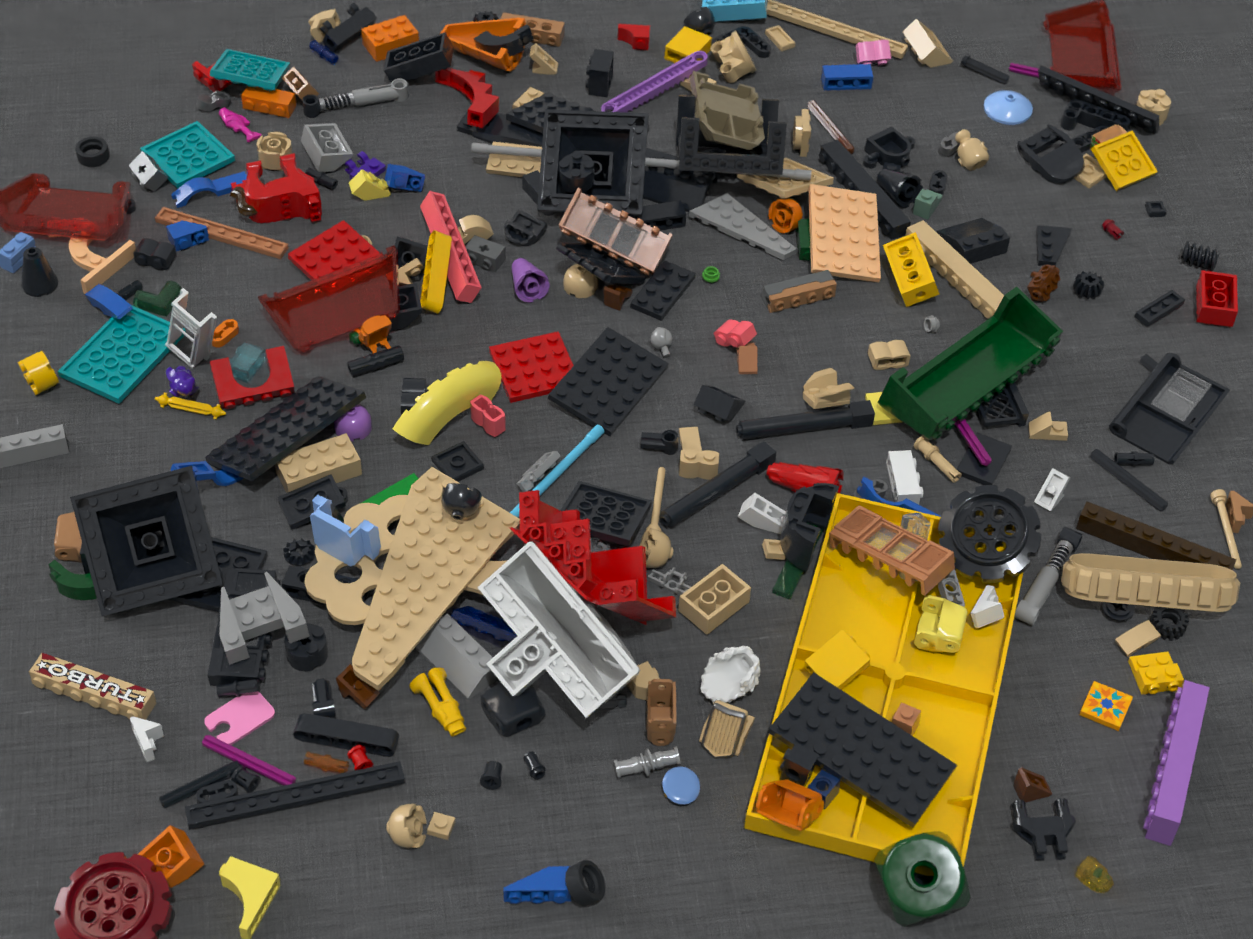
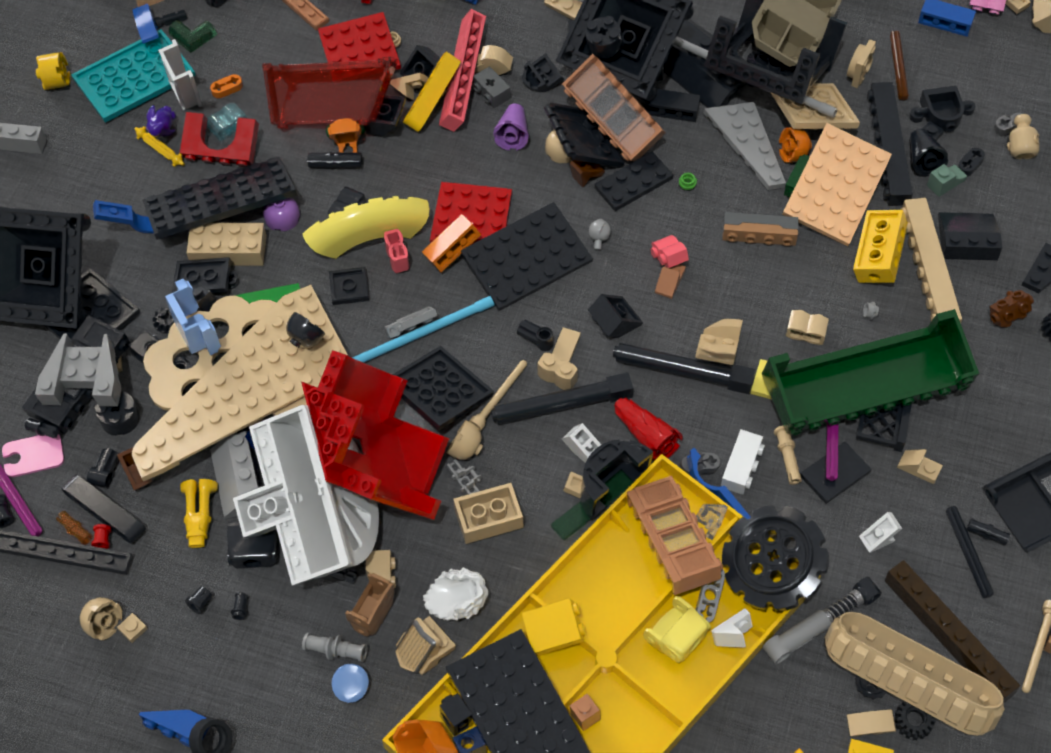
camera: 30 degrees right, 10 degrees up
(536, 391) = (451, 242): none -> orange brick

